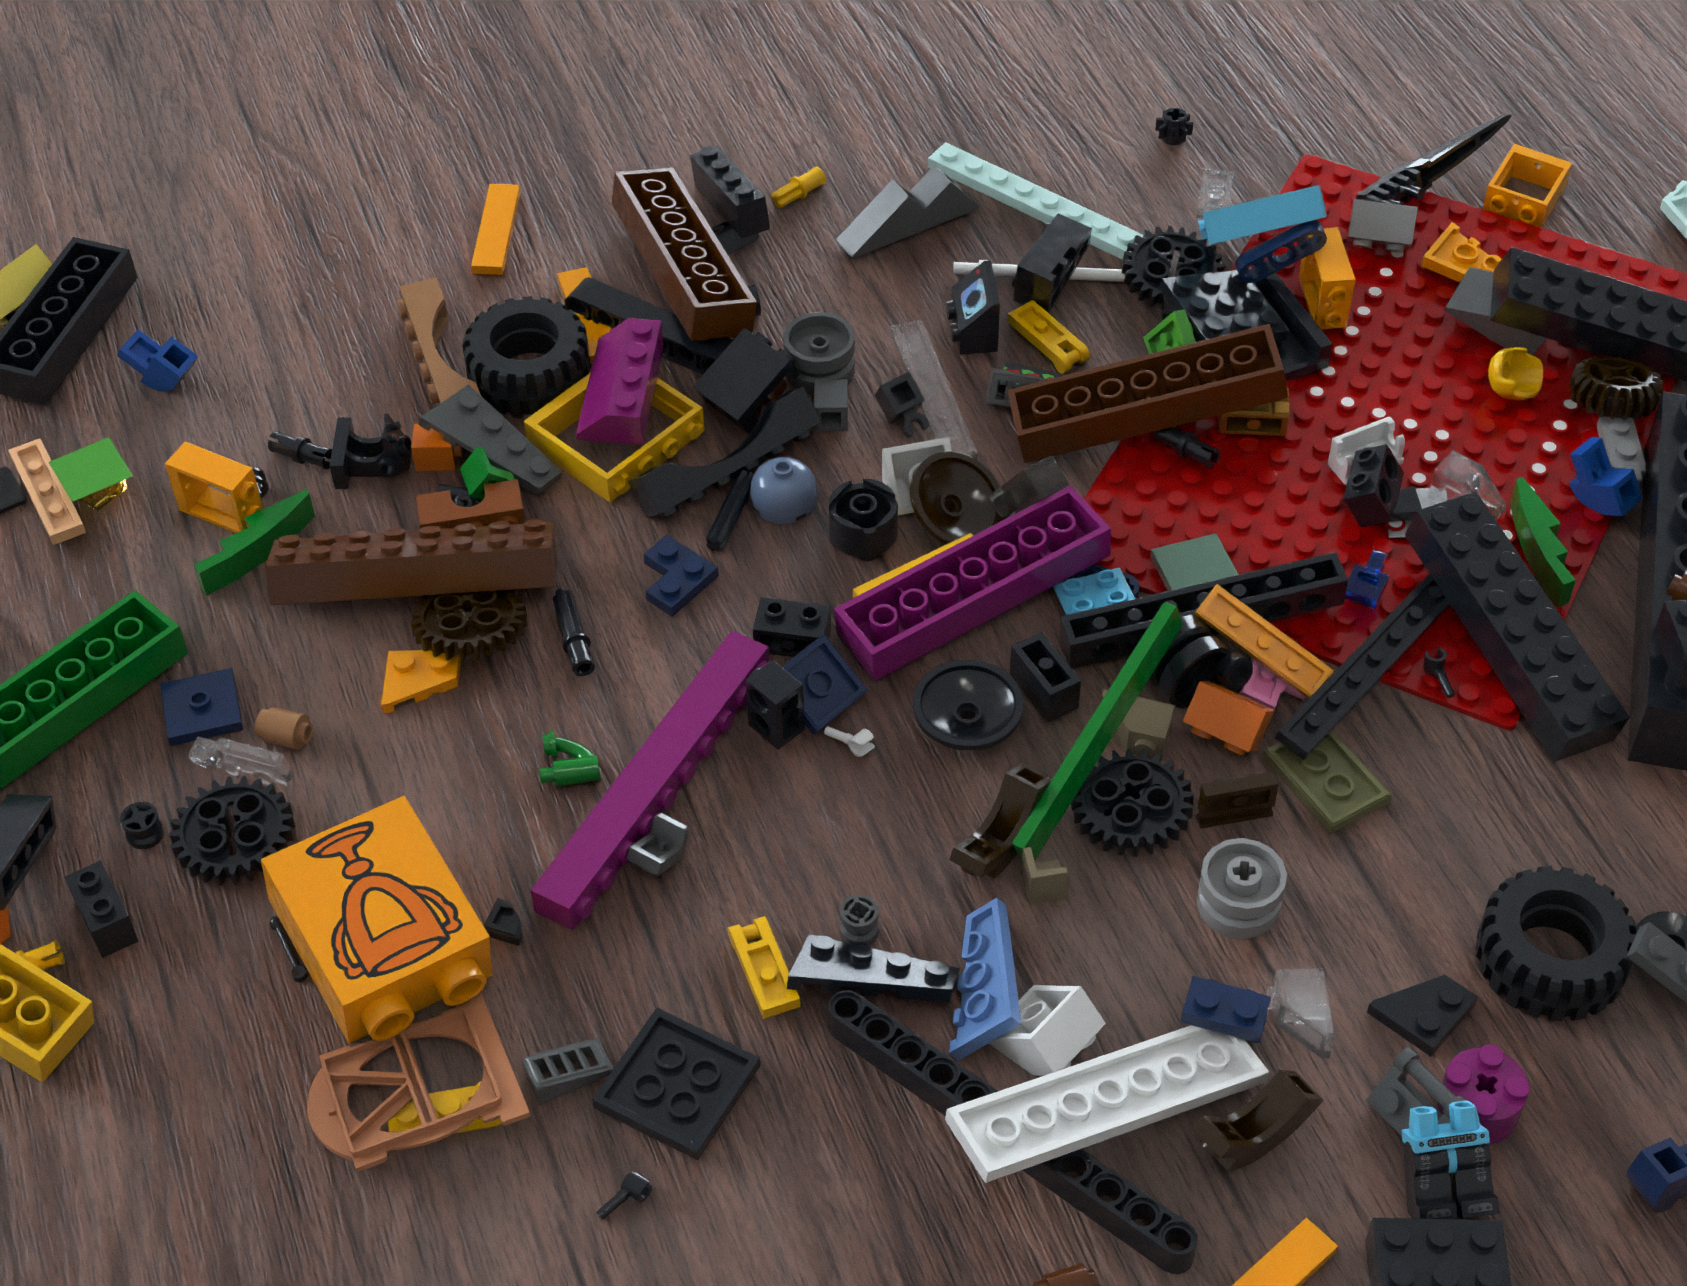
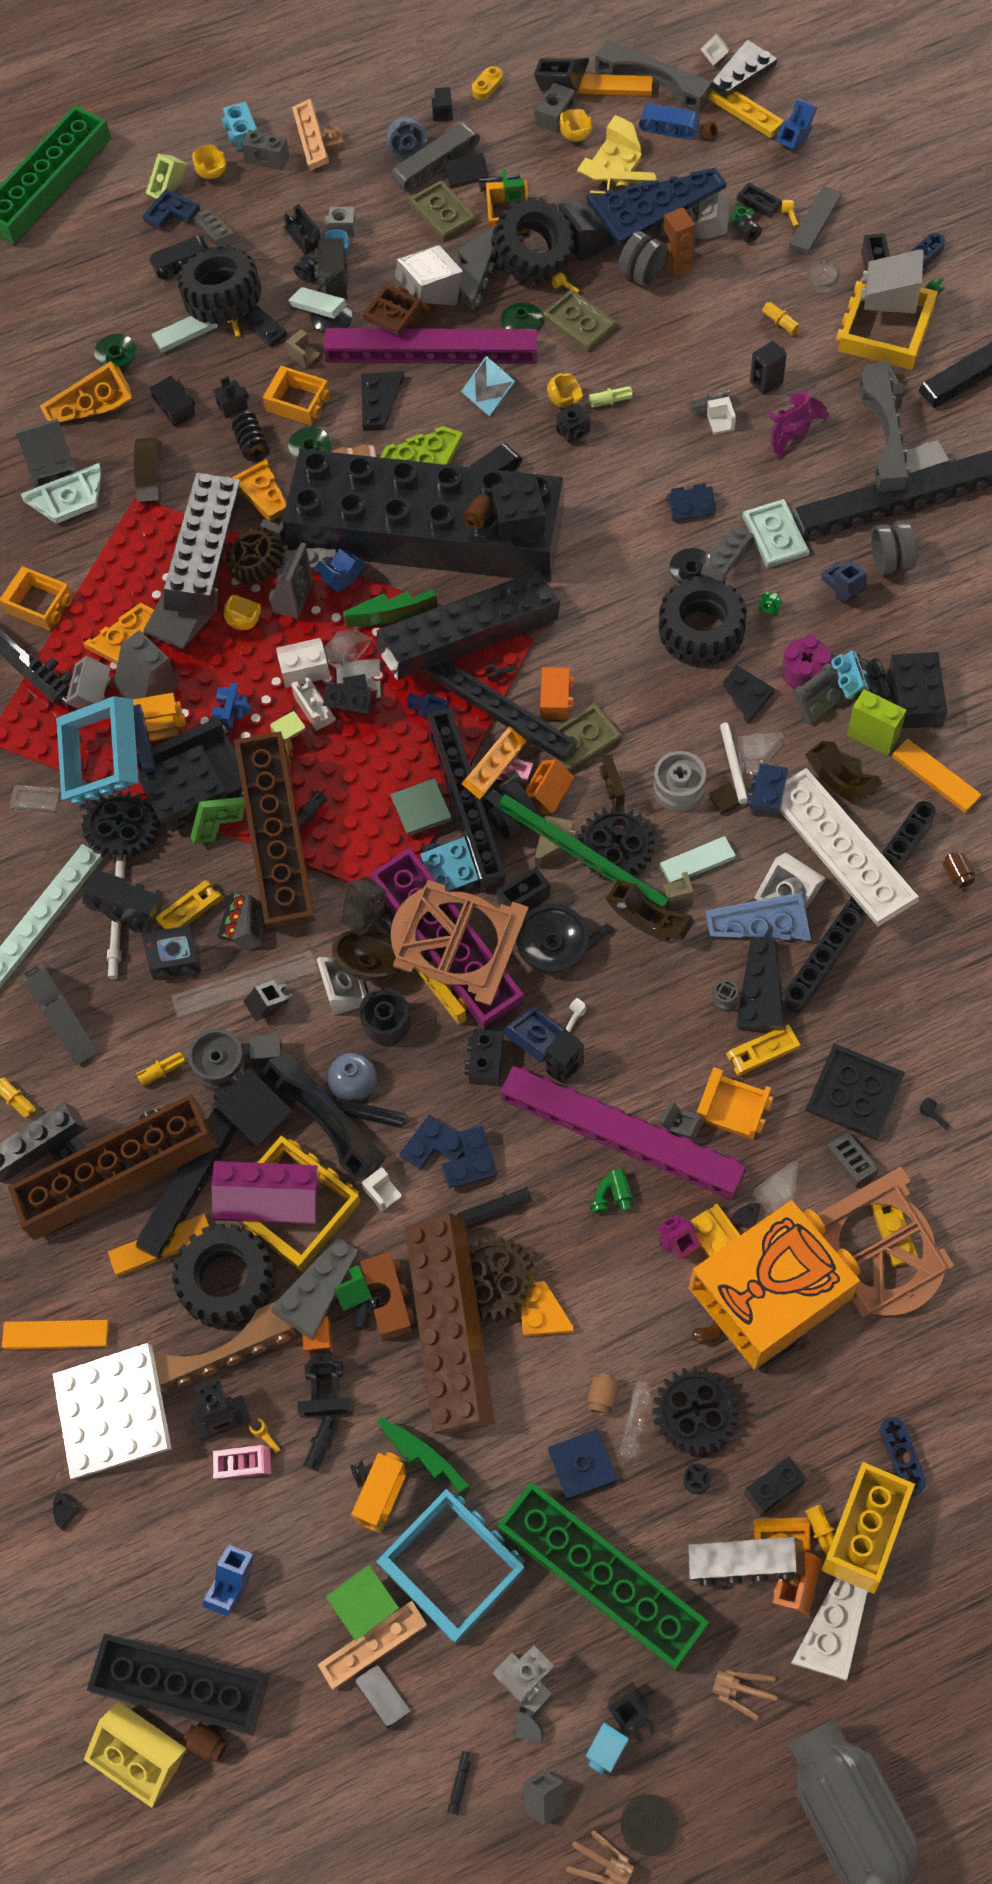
camera: 90 degrees left, 15 degrees up
(42, 916) = (783, 1528): none -> light orange slope
(85, 1071) = (888, 1439): none -> dark blue beam
(97, 526) = (476, 1523): none -> medium azure window
(290, 241) = (64, 1511): none -> black tile
(299, 385) = (263, 1468): none -> bright pink slope
(335, 401) = (263, 1433): none -> yellow hand
(353, 337) = (216, 1411): none -> black tile
(385, 263) = (111, 1411): none -> white plate
(481, 823) = (678, 1237): none -> magenta brick
(490, 877) = (714, 1230): none -> yellow plate
(529, 960) = (777, 1189): none -> clear slope
(617, 513) = (381, 1190): none -> white panel
(641, 613) = (475, 1164): none -> dark blue plate
(680, 917) = (734, 1105): none -> light orange panel
(813, 300) = (160, 1069): none -> yellow axle
(973, 770) = (597, 936): none -> black wheel
(984, 637) = (407, 950): none -> nougat window
(1103, 913) = (698, 860): none -> light aqua tile
(1217, 959) = (724, 798): none -> dark brown tile
(1266, 973) = (734, 764): none -> white bar
(1318, 418) = (289, 726): none -> yellowish green panel
(1353, 1175) = (876, 722): none -> lime brick
(1357, 366) = (233, 705): none -> blue hips
(1402, 737) = (555, 693): none -> orange brick
(1405, 273) = (143, 669): none -> dark grey slope
(1431, 435) = (303, 661): none -> white slope
(1563, 416) = (293, 585): none -> dark grey slope
(1610, 1058) = (770, 603): none -> green plate

